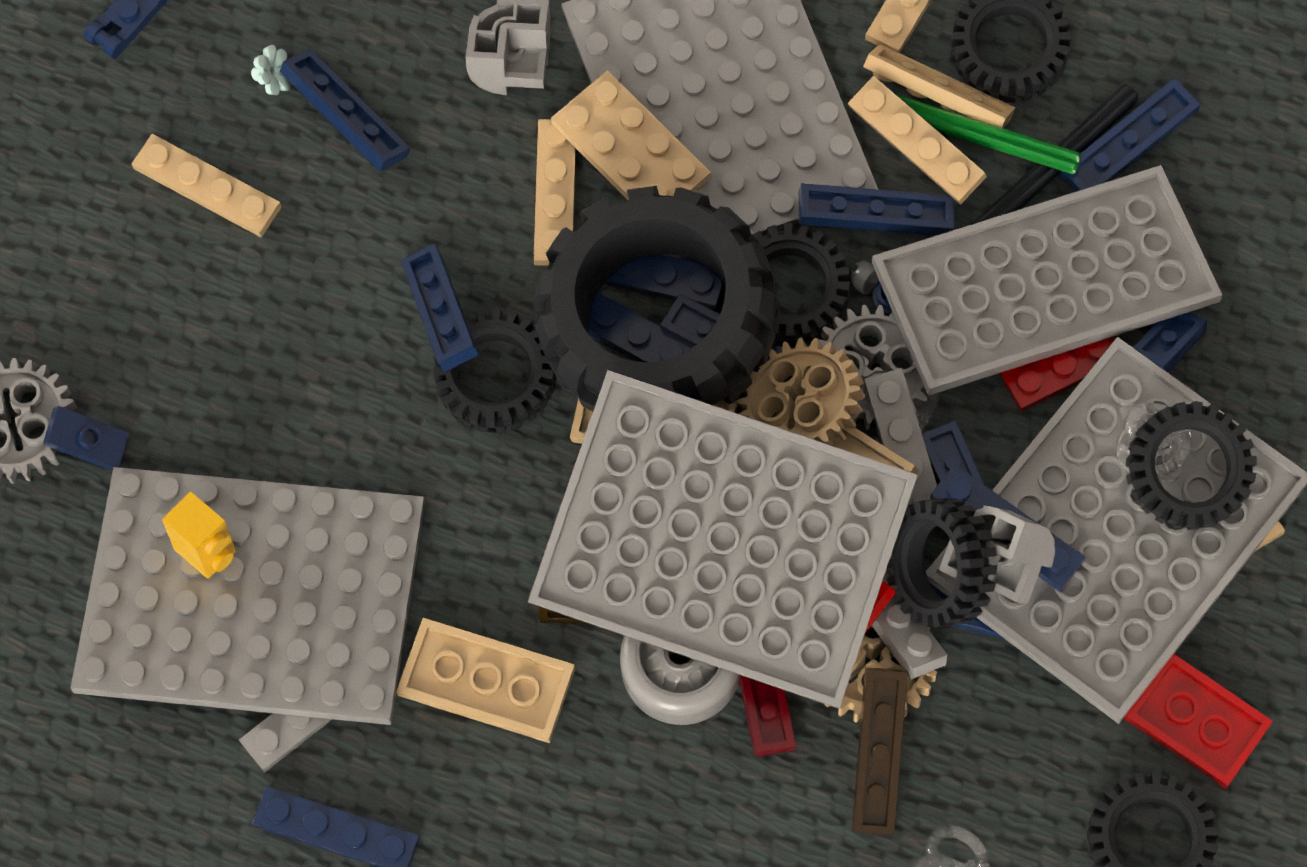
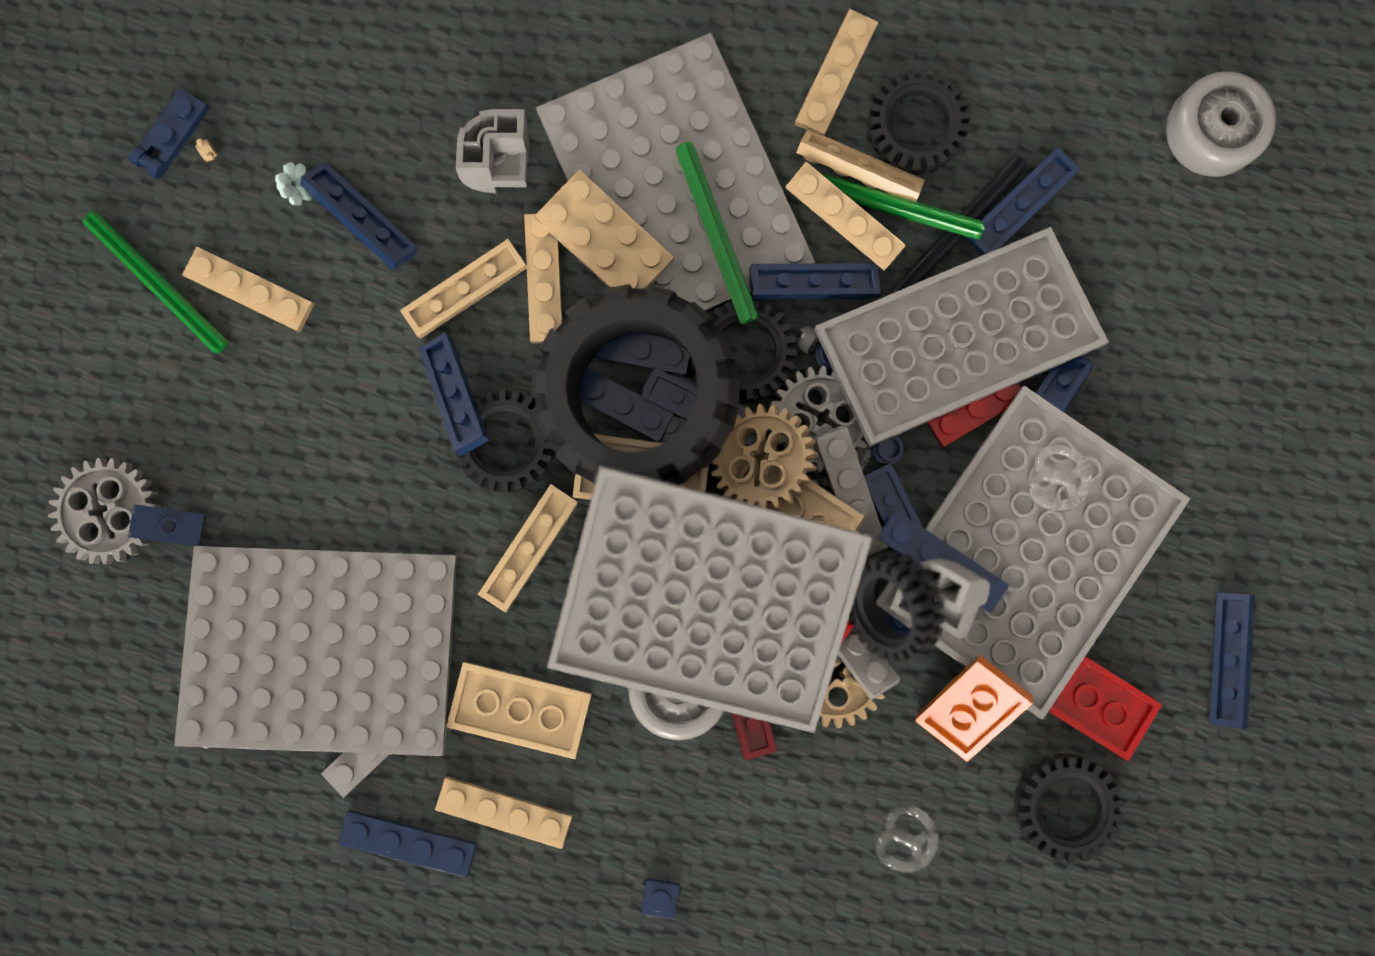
camera: 10 degrees left, 15 degrees up
(99, 171) = (155, 282): none -> green axle
(173, 29) = (206, 149): none -> tan piece
(199, 535) = (265, 617): yellow brick -> none
(456, 802) = (503, 812): none -> tan plate
(460, 197) = (463, 289): none -> tan plate
(512, 494) = (528, 548): none -> tan plate
(763, 148) = (716, 233): none -> green axle
(879, 751) = (846, 755): dark brown plate -> none
(952, 405) = (888, 450): none -> dark blue plate
(1037, 704) = (974, 708): none -> plate
(1230, 440) = (1132, 510): black tyre -> none

